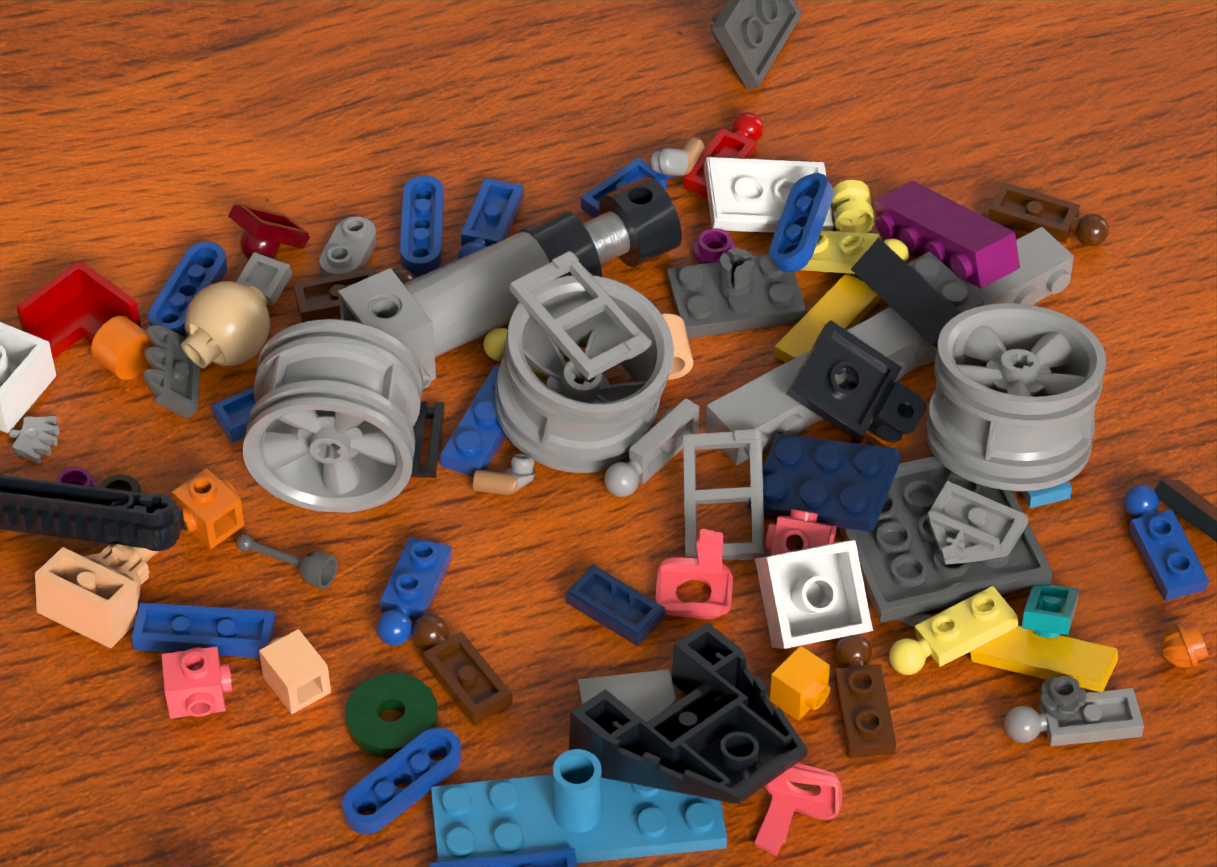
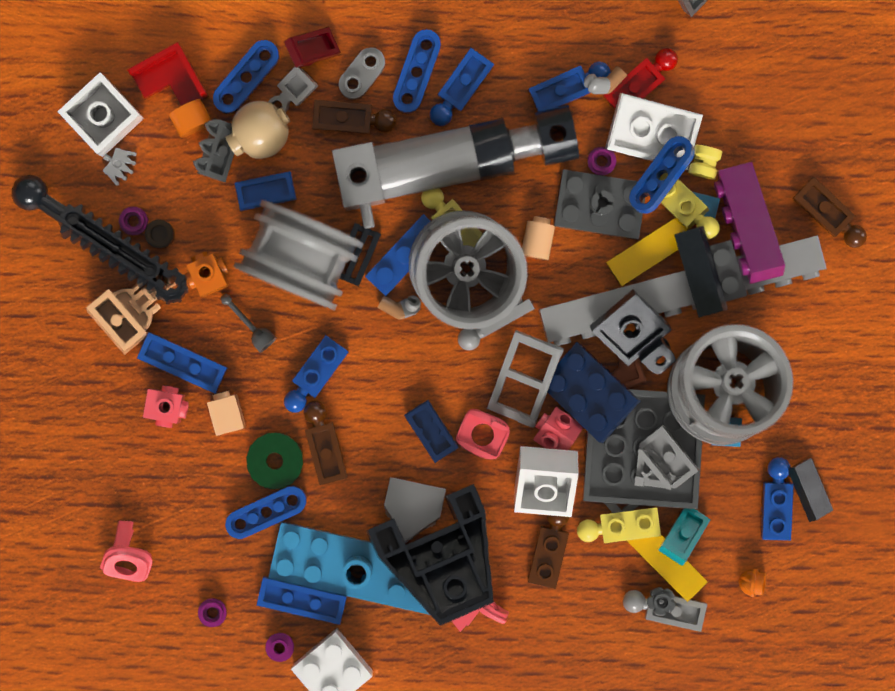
camera: 15 degrees right, 40 degrees up
(556, 328) = (490, 248): light grey window -> none
(800, 683) = (517, 530): light orange plate -> none

